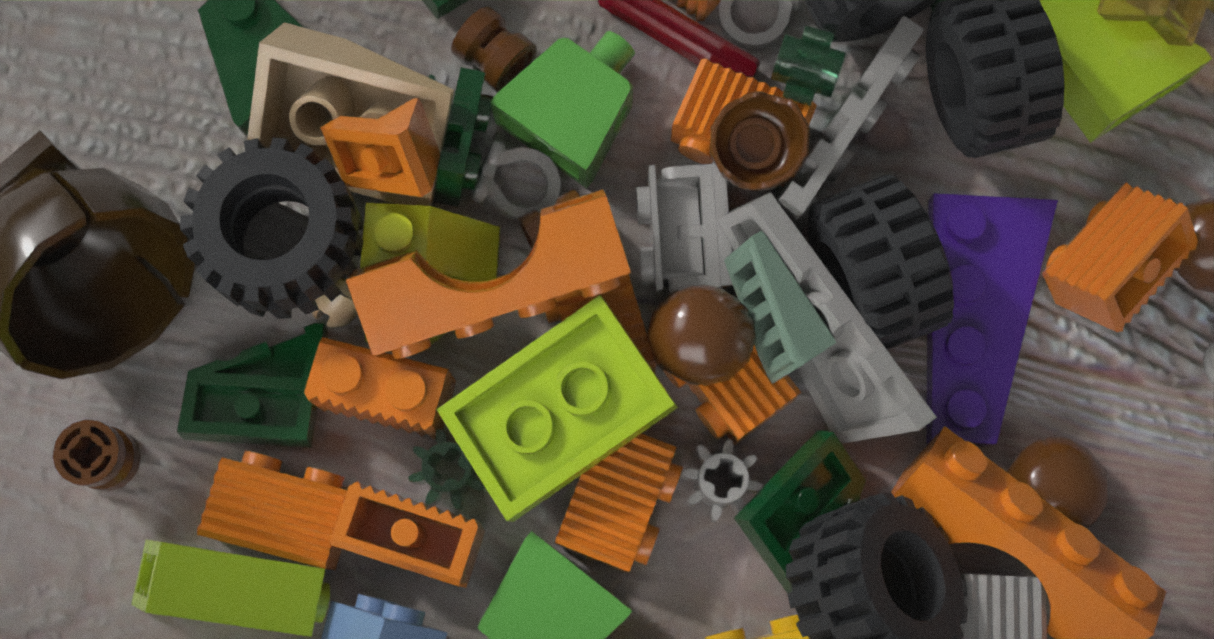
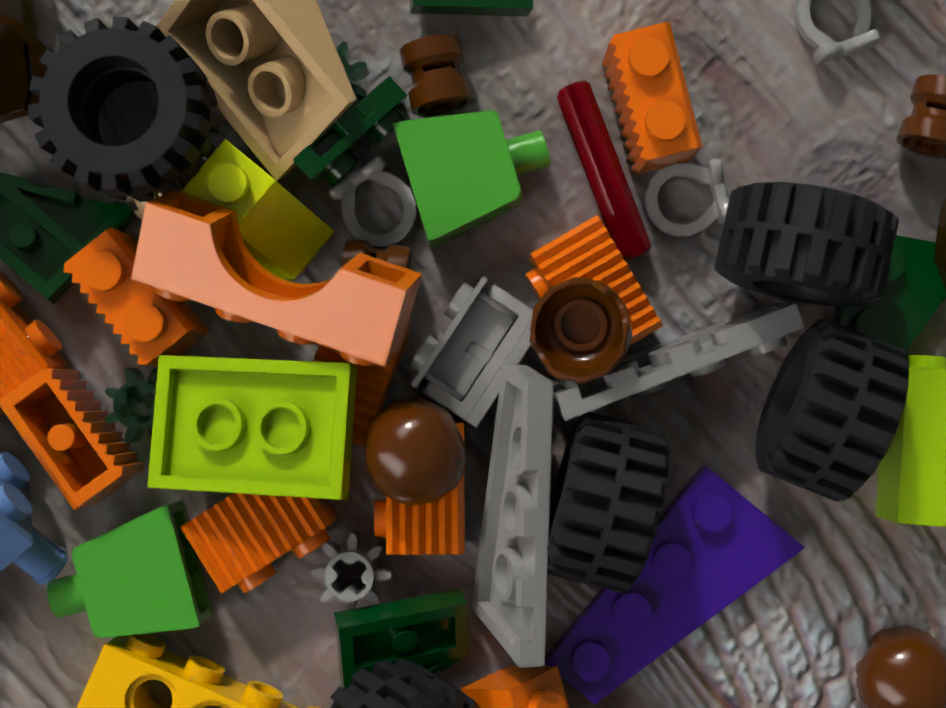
camera: 40 degrees right, 10 degrees up
(387, 152) = (264, 118): orange slope -> none
(784, 318) = (486, 496): sand green slope -> none
(808, 65) = (680, 288): clear green gear -> none
(1120, 256) = (814, 635): orange brick -> none

